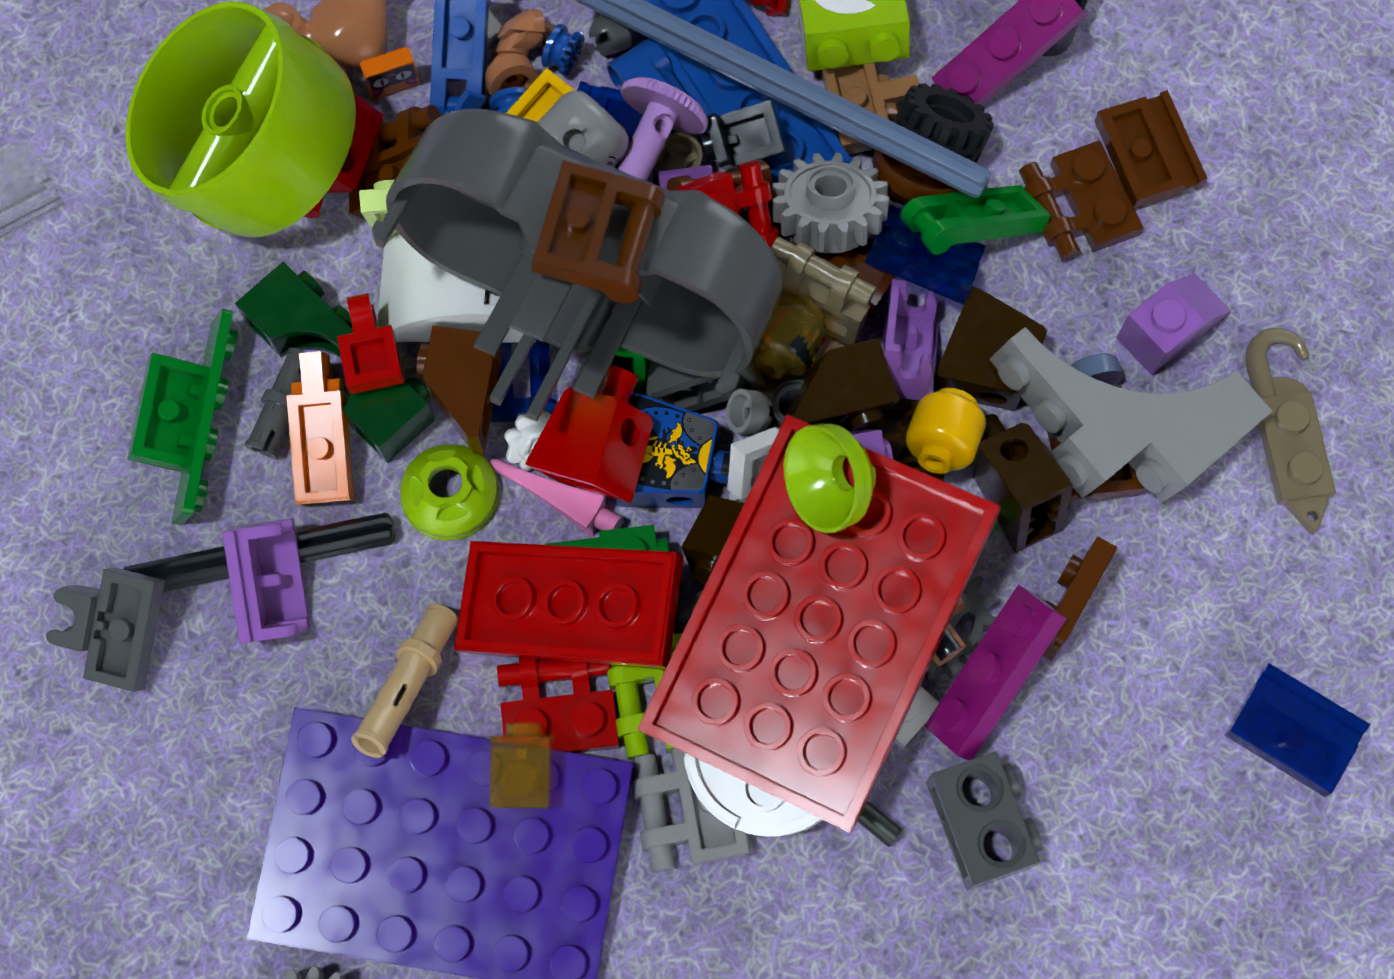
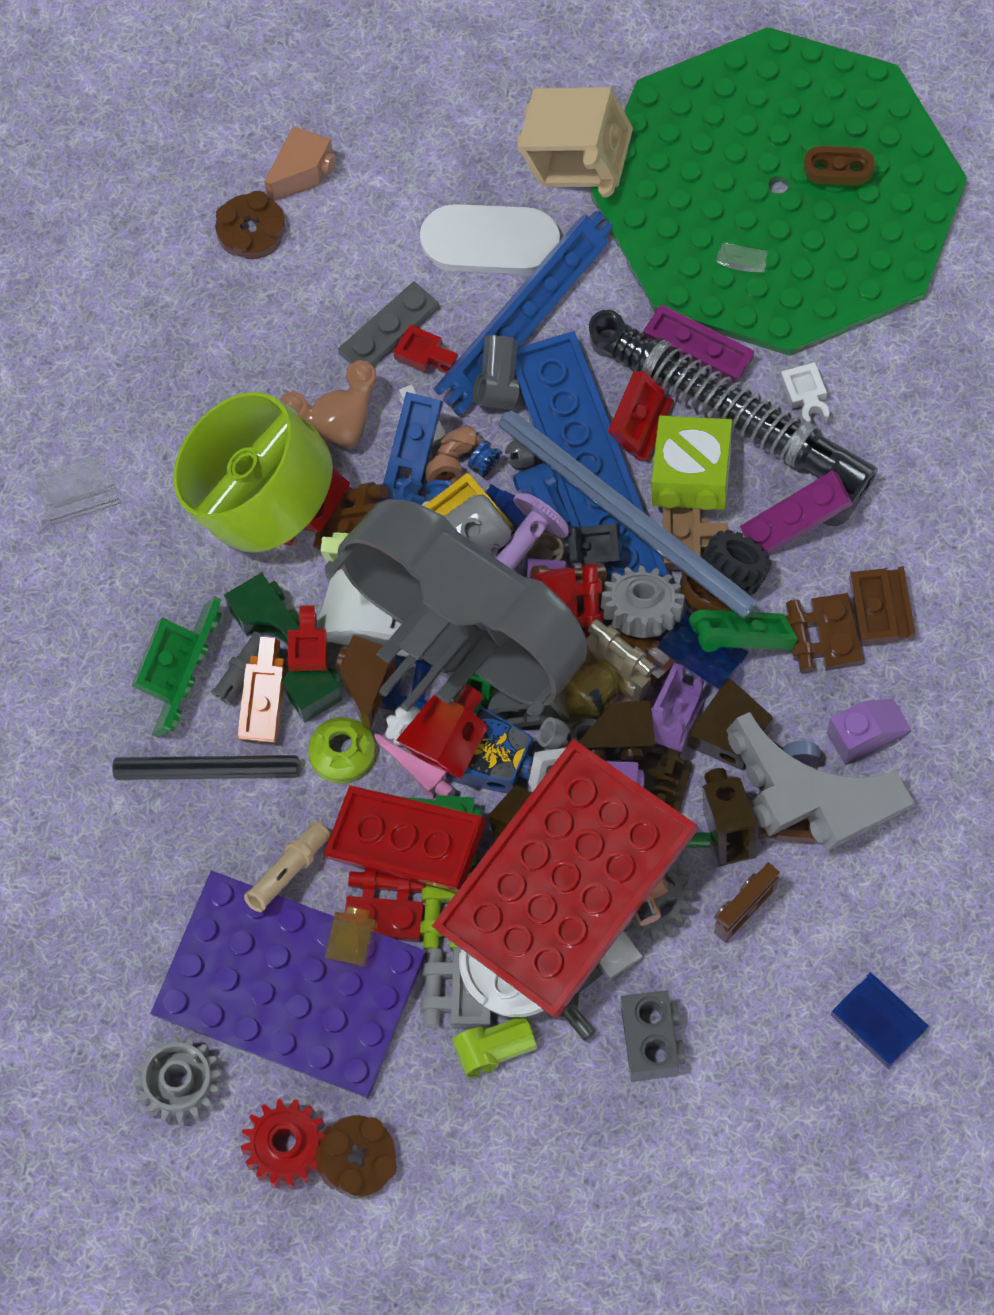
camera: 15 degrees right, 5 degrees down
(113, 626) = (102, 794): dark grey plate -> none
(266, 580) = (208, 783): medium lavender hinge -> none
(390, 73) = (361, 453): orange tile -> none
(578, 225) = (456, 589): reddish brown plate -> none
(751, 887) = (485, 1048): none -> lime piece
(817, 478) = (587, 783): lime piece -> none
(946, 430) = (683, 772): yellow head -> none
(994, 673) = (678, 938): magenta plate -> none
(1291, 433) = (930, 820): dark tan plate -> none

